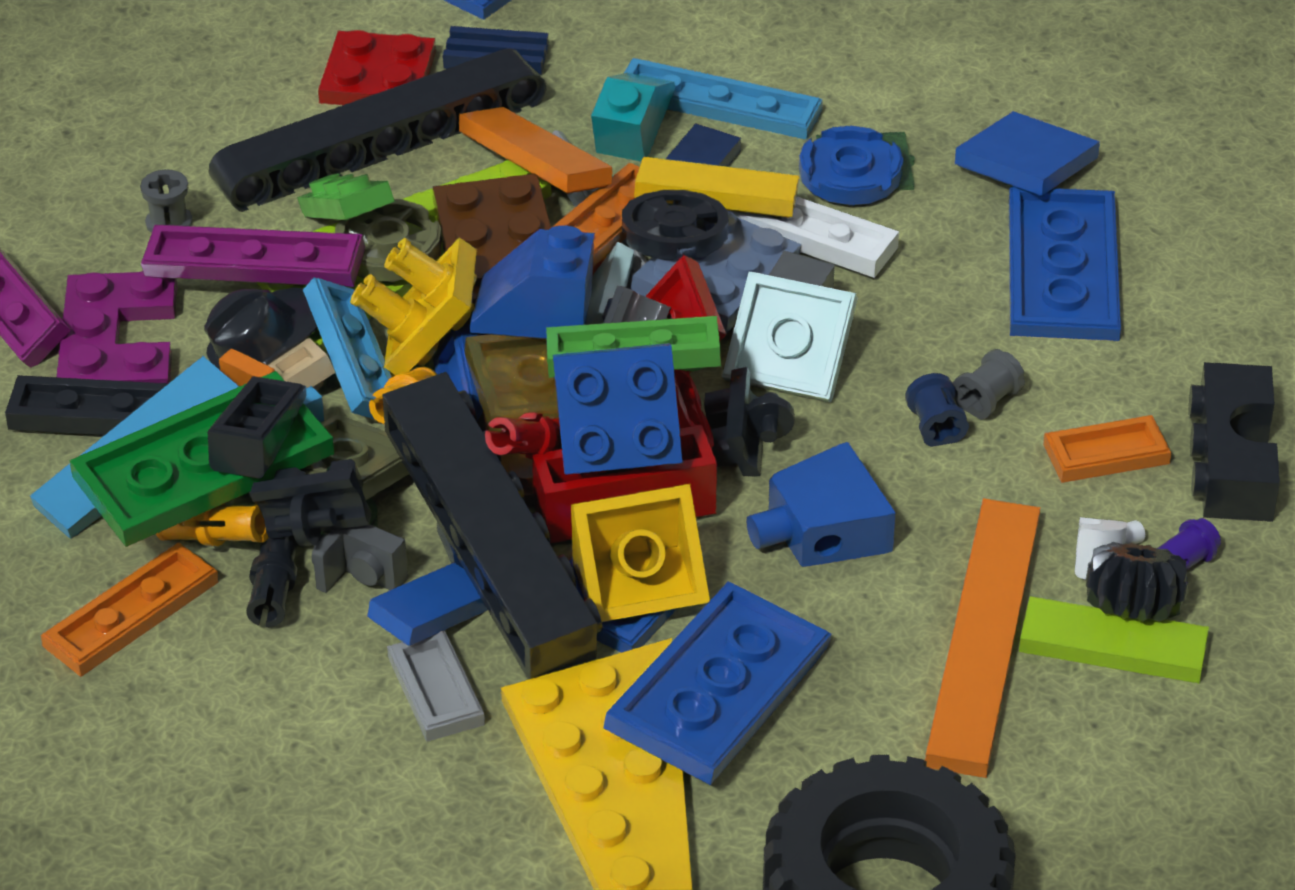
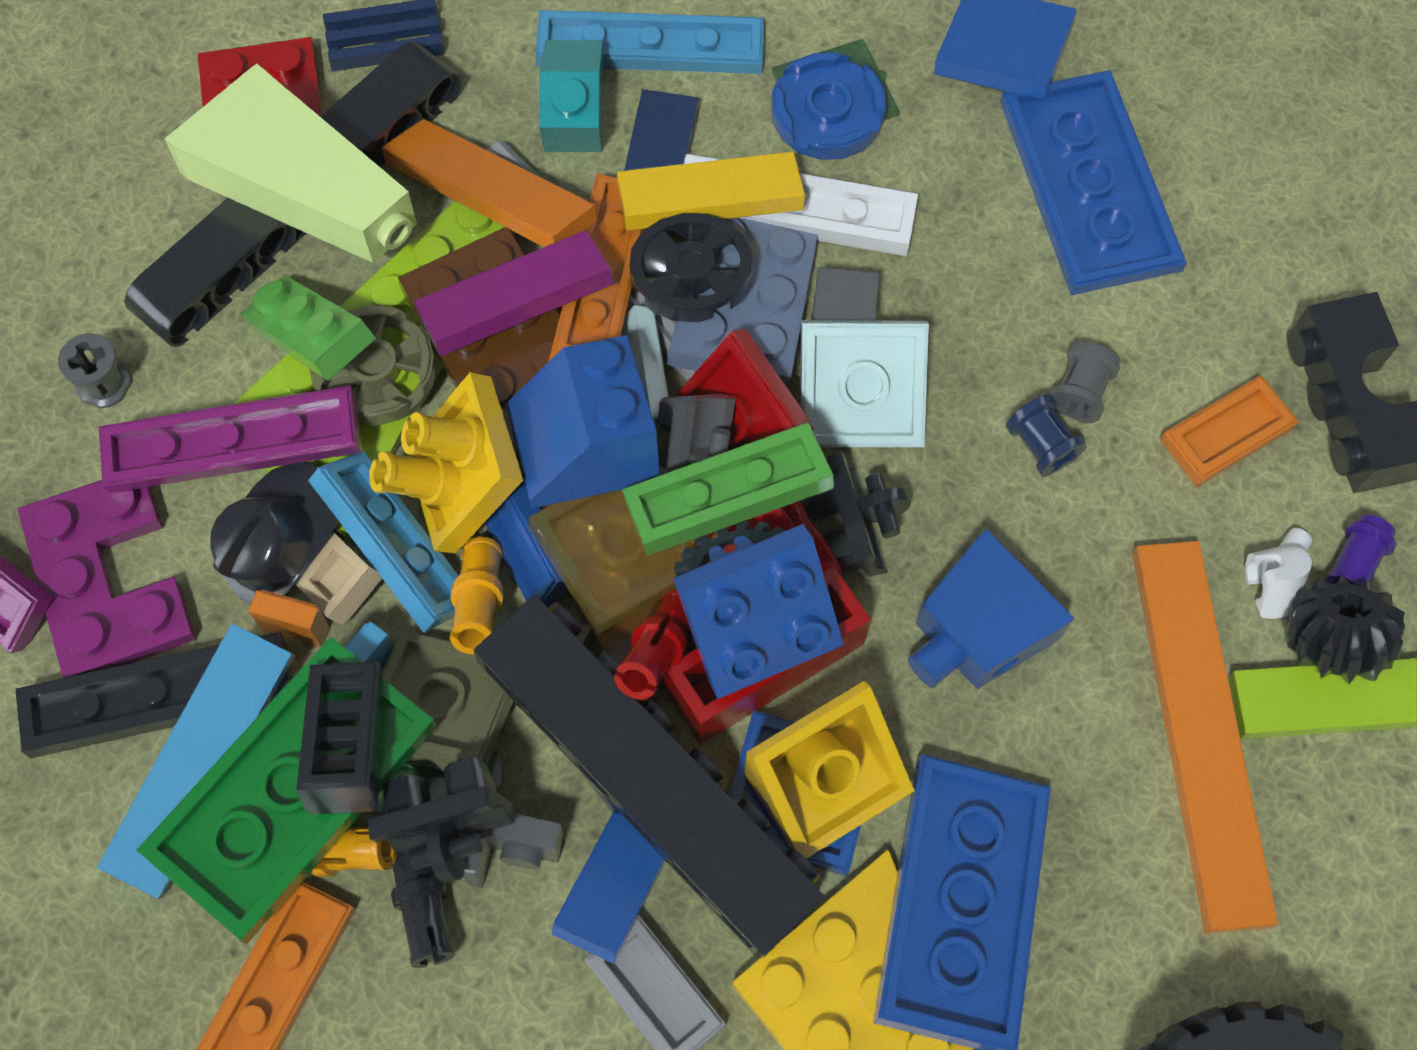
camera: 20 degrees left, 25 degrees up
(378, 95) = (293, 166): none -> yellowish green slope
(520, 204) = (513, 292): none -> magenta tile

